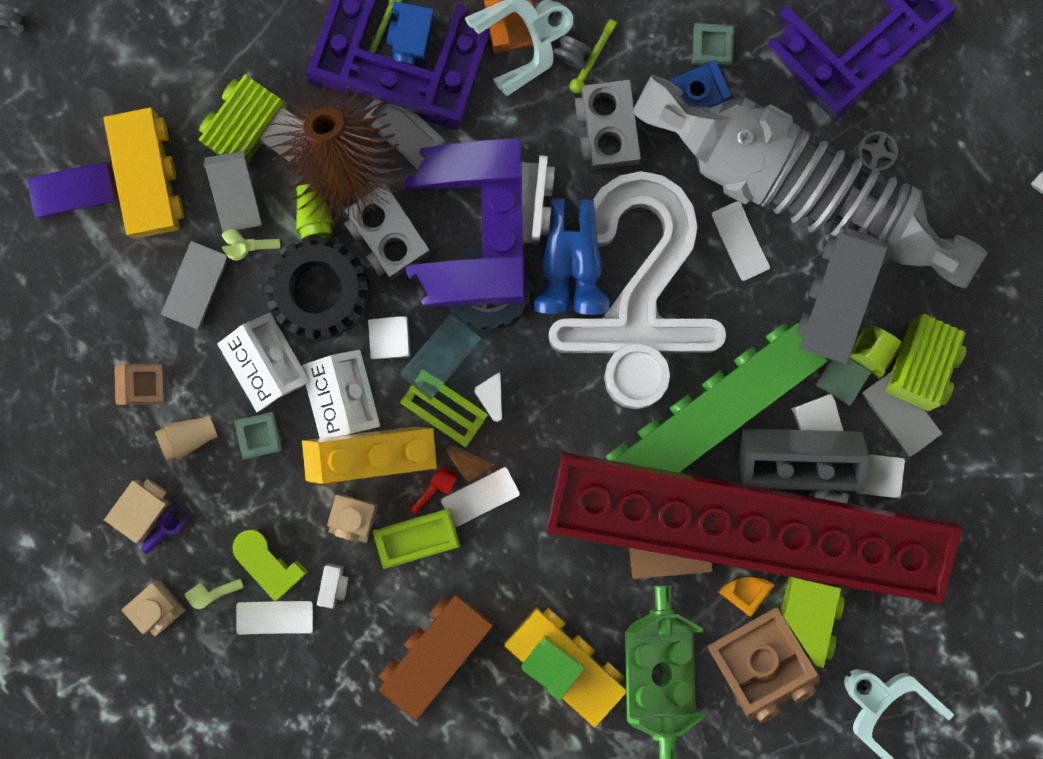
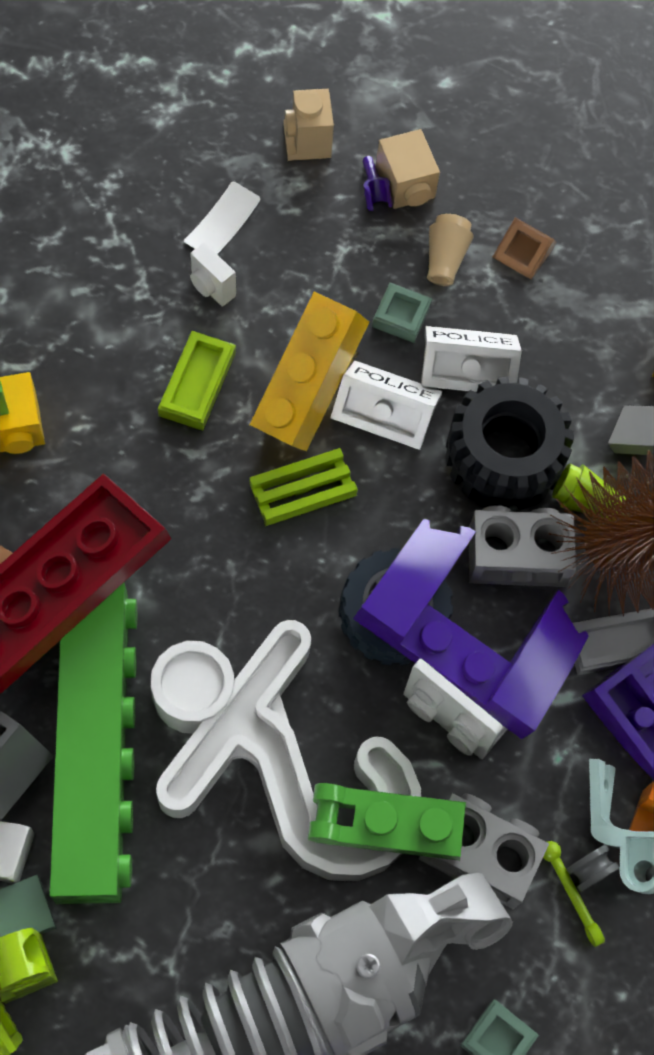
camera: 120 degrees right, 20 degrees down
(195, 285) = (587, 350): light grey tile -> none
(200, 597) = (289, 172): yellowish green hand -> none
(241, 246) = (600, 407): yellowish green hand -> none
(255, 554) = (277, 237): lime leg -> none
(351, 518) = (259, 324): tan brick -> none
(389, 338) = (410, 485): white slope -> none
(434, 655) = (76, 318): dark orange brick -> none
(440, 356) = (357, 511): clear light blue plate -> none
(441, 480) = (233, 437): red hand -> none
(468, 463) = (233, 467): clear orange slope -> none
(481, 496) = (191, 463): white sticker -> none
(490, 396) = (279, 532): white slope -> none
(572, 255) = (369, 702): blue piece -> none
(640, 190) = (389, 822): none -> bright green plate
(712, 81) = (452, 999): blue brick -> none
(740, 241) = (253, 909): white sticker -> none
(841, 294) = (108, 954): dark grey brick -> none

